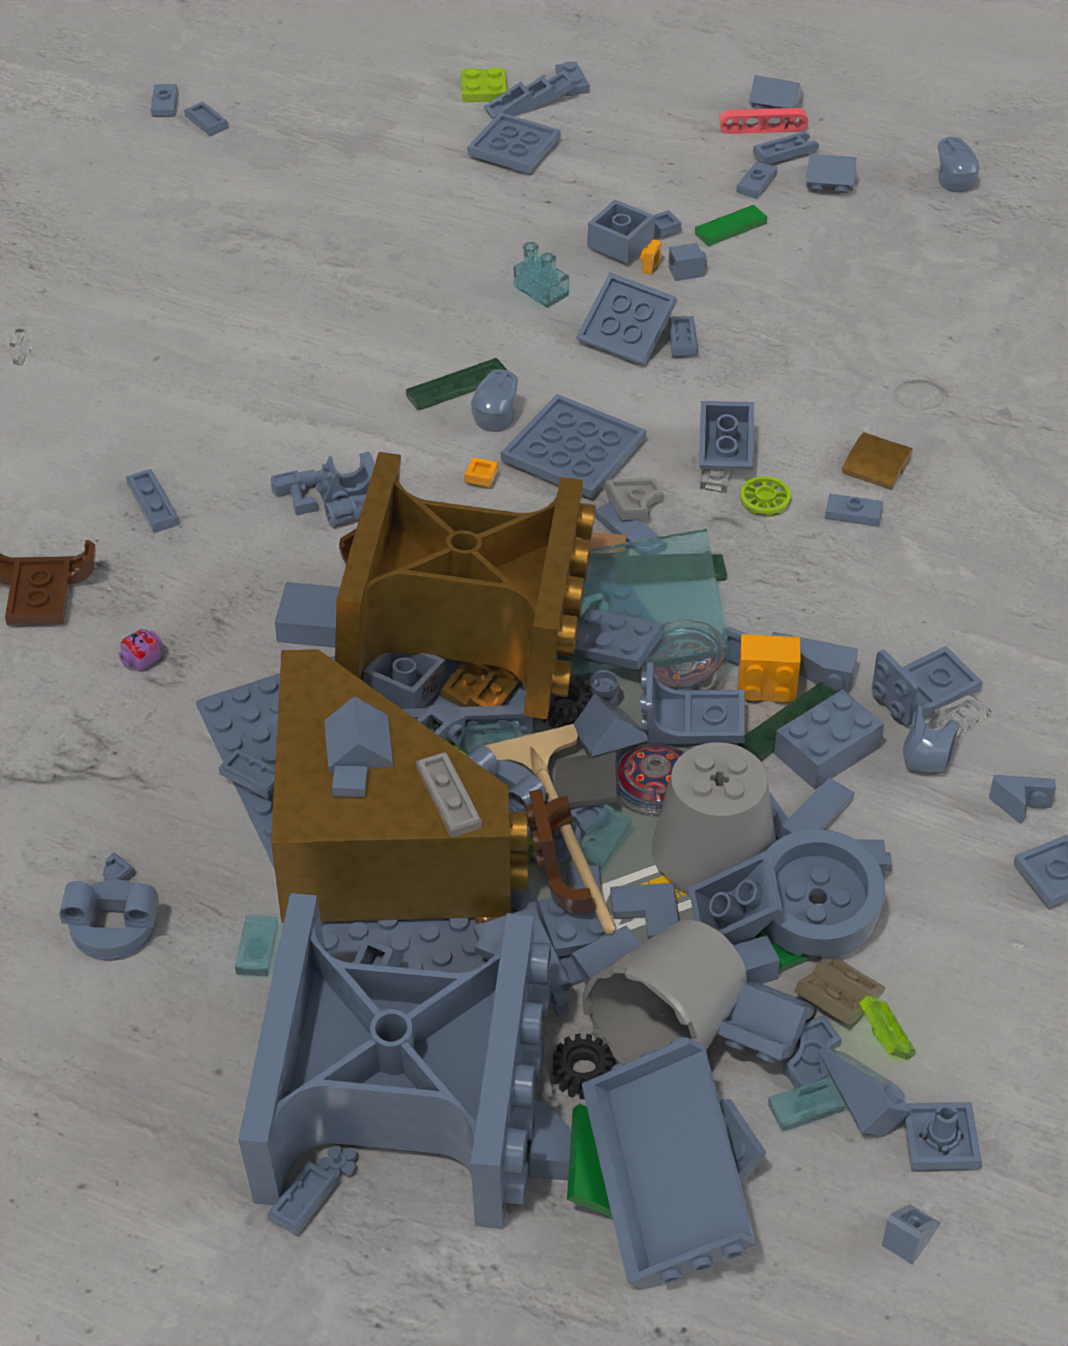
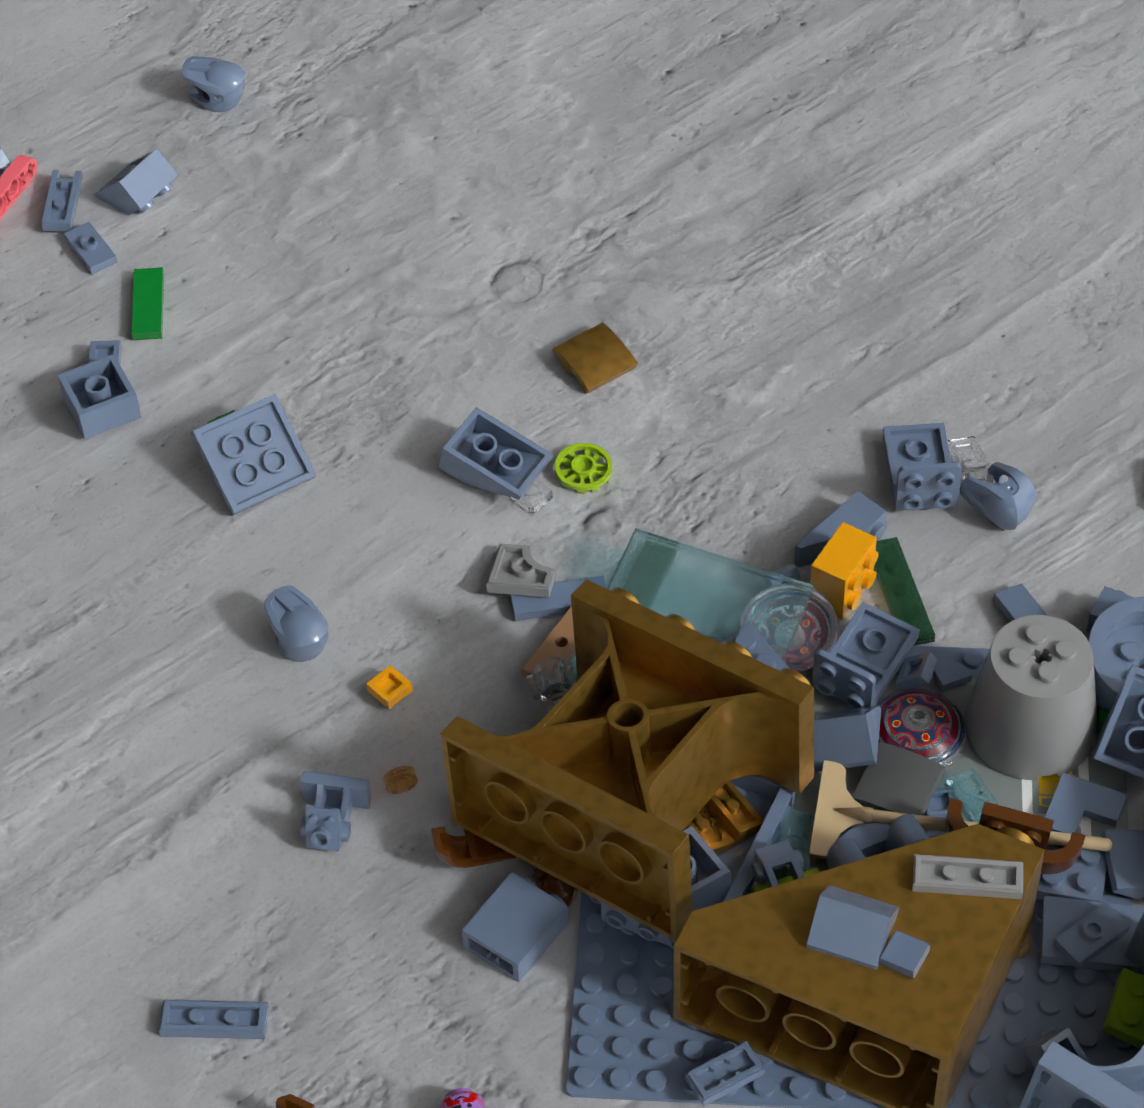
camera: 60 degrees left, 5 degrees up
(296, 483) = (287, 865): sand blue piece -> none
(344, 509) = (366, 832): sand blue hinge -> none
(451, 385) = (226, 651): clear green tile -> none
(540, 277) = (118, 500): clear light blue brick -> none
(573, 443) = (404, 590): sand blue plate -> none
(651, 256) = (154, 391): light orange plate -> none
(682, 335) = (306, 424): sand blue plate -> none
(686, 261) = (185, 366): sand blue brick -> none
(828, 739) = (950, 570): sand blue brick -> none
(854, 509) = (649, 408): sand blue plate -> none
(1017, 792) = (1093, 466): sand blue slope -> none

